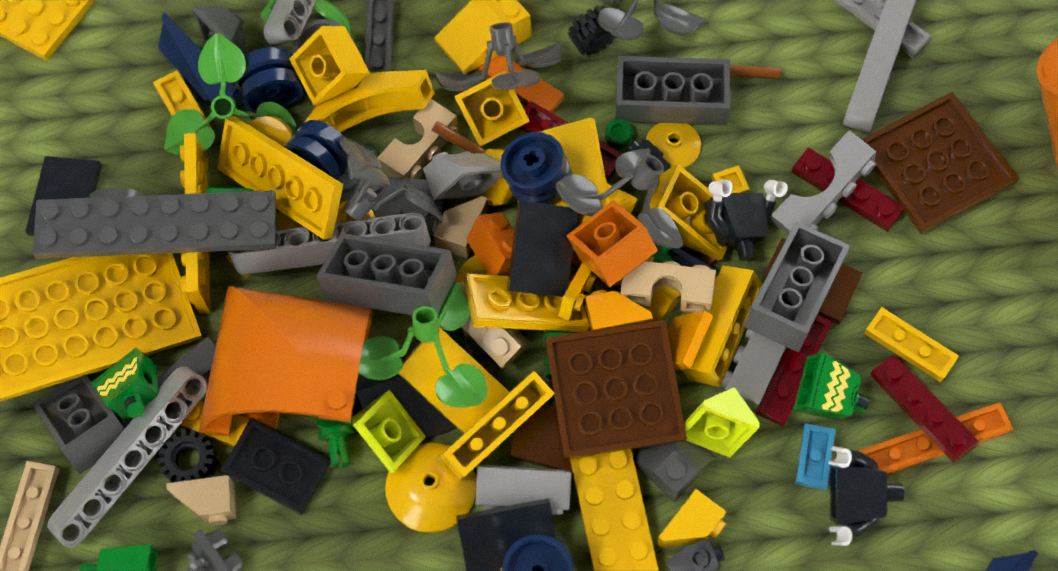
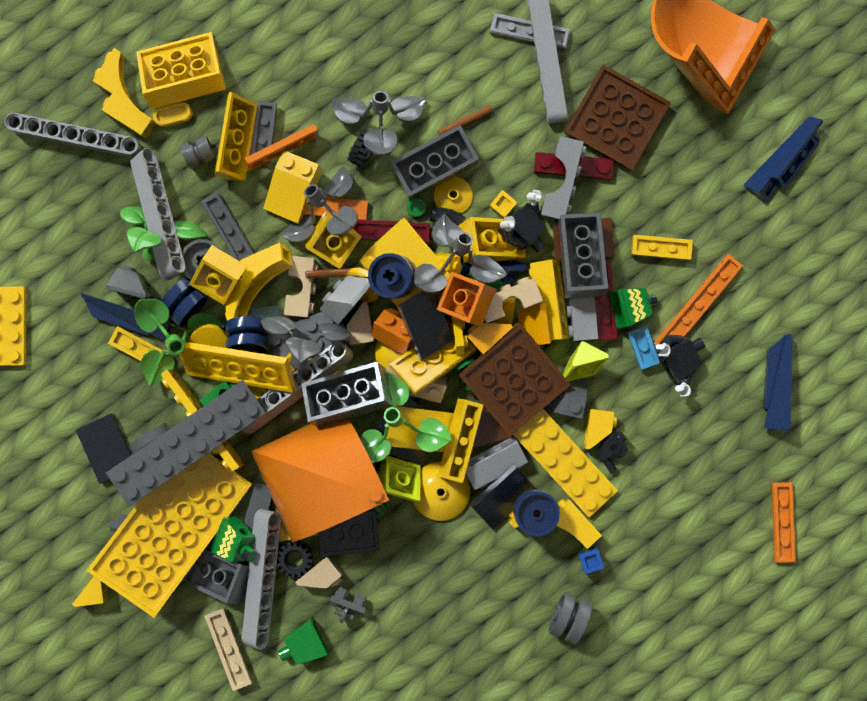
camera: 35 degrees left, 20 degrees up
(924, 408) = (688, 283): dark red plate -> none

